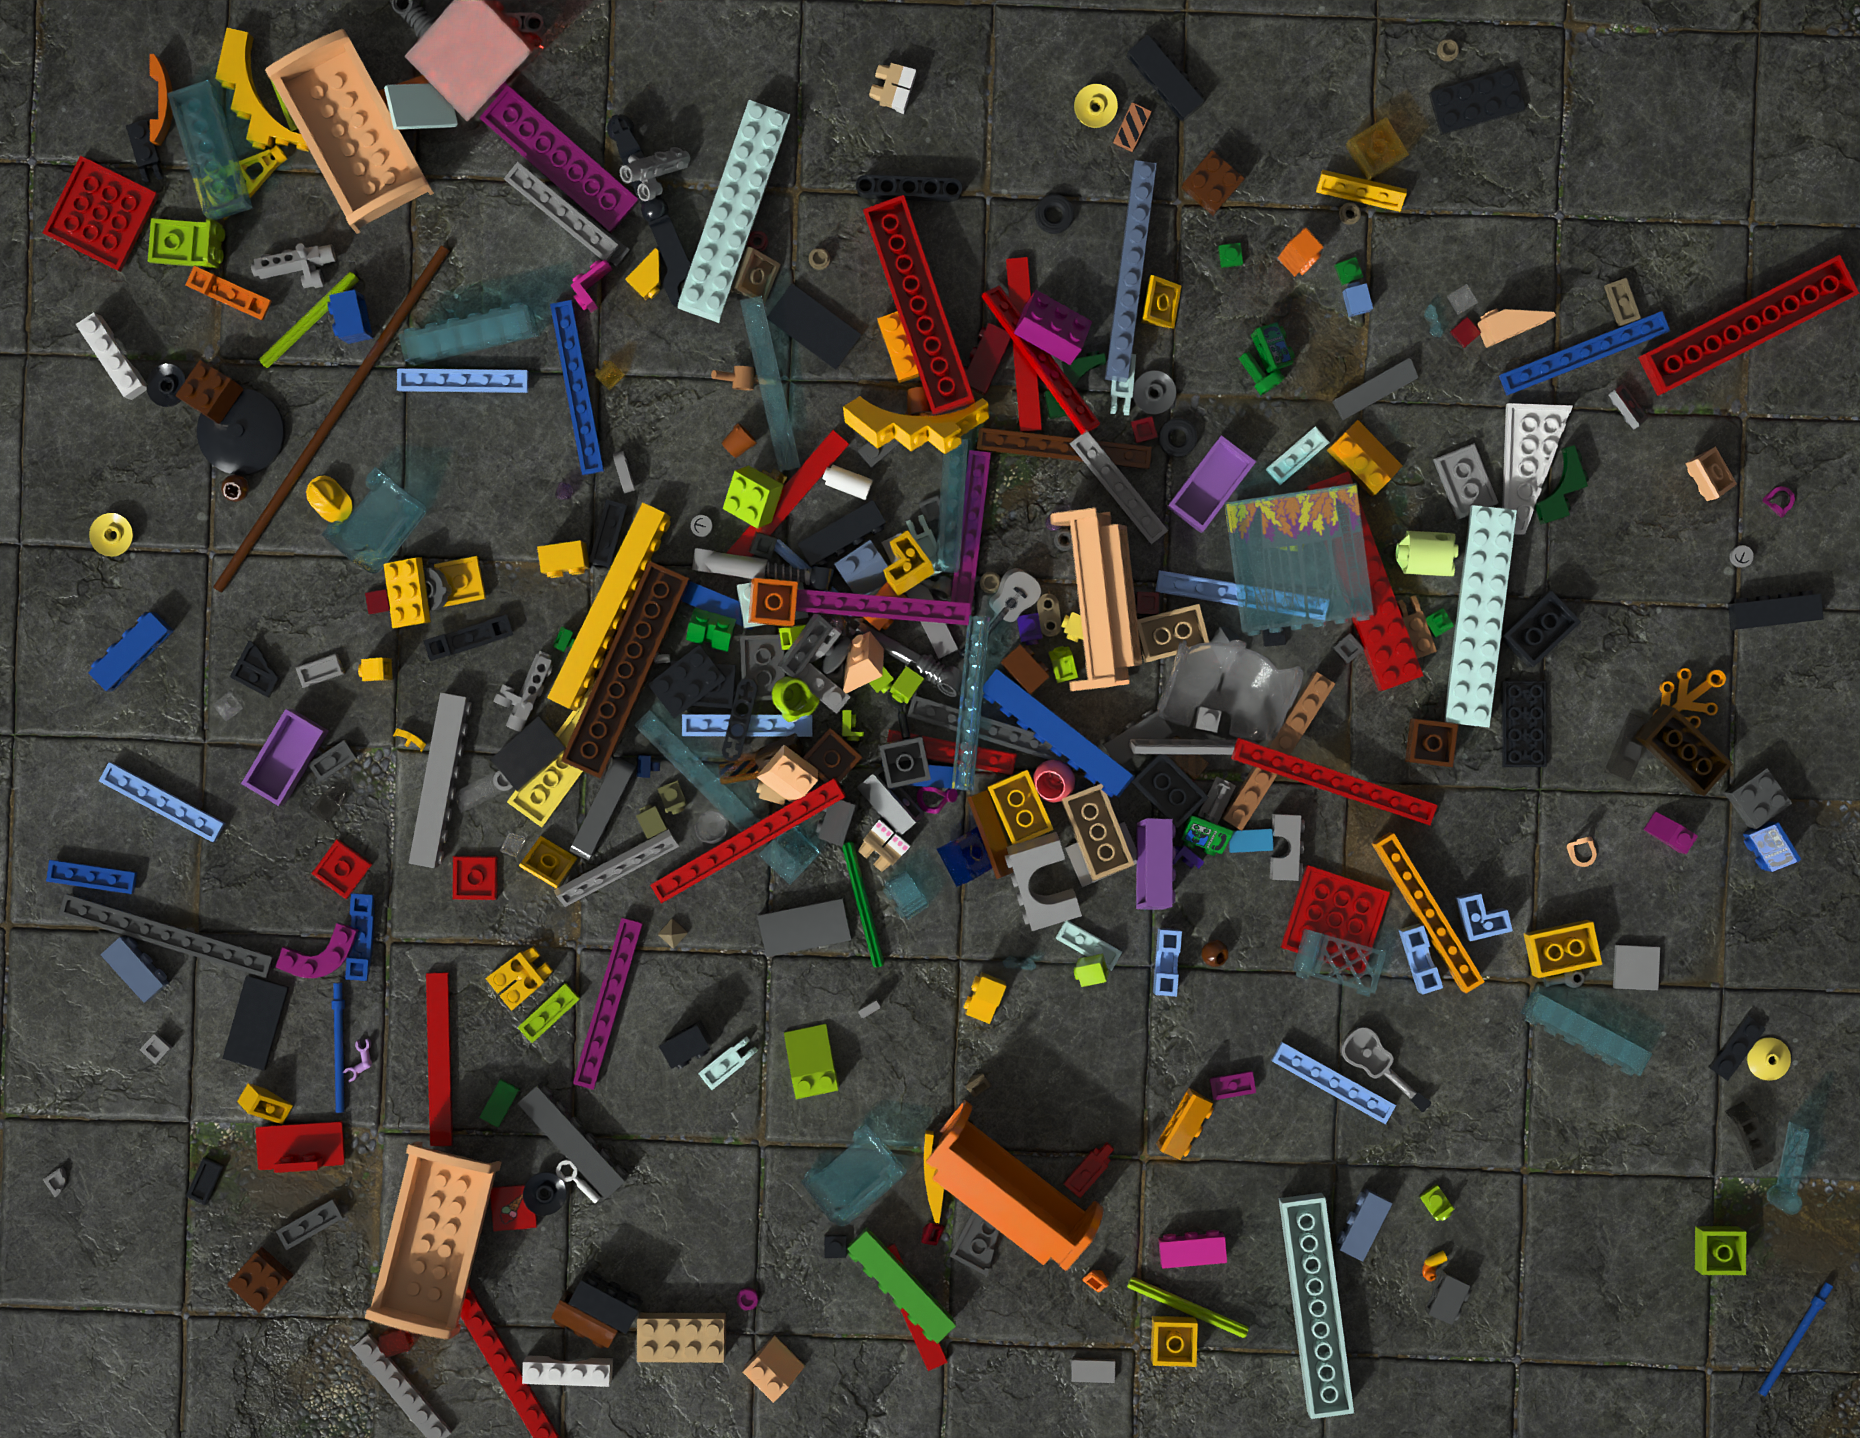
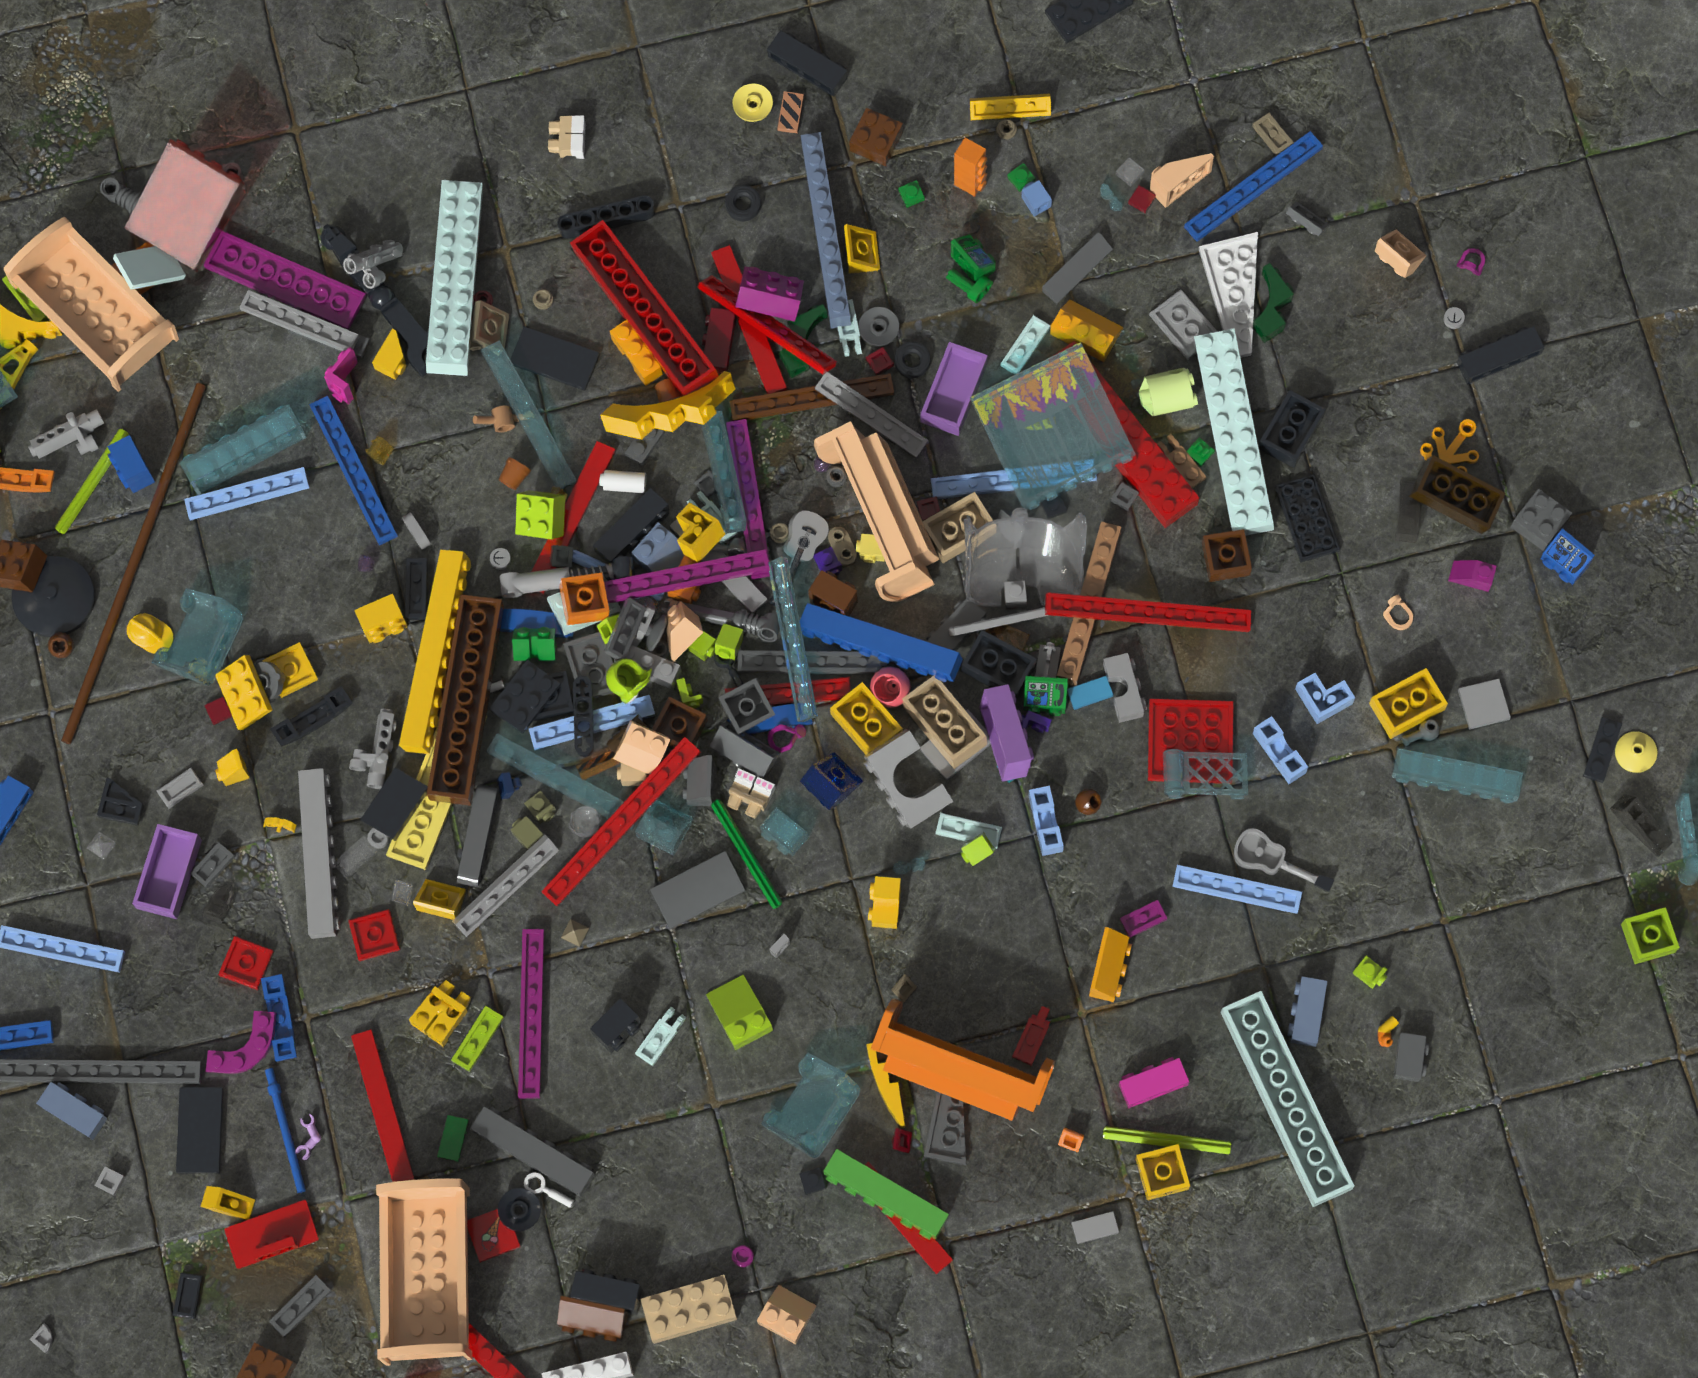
camera: 10 degrees left, 15 degrees down
(564, 639) = (400, 693): green tile -> none
(990, 832) = (846, 753): reddish brown tile -> none
(1063, 664) = (865, 582): lime bracket -> none
(1376, 149) = (1012, 68): clear yellow brick -> none
(1427, 912) = (1270, 704): light orange brick -> none
(1748, 325) = (1389, 121): red brick -> none

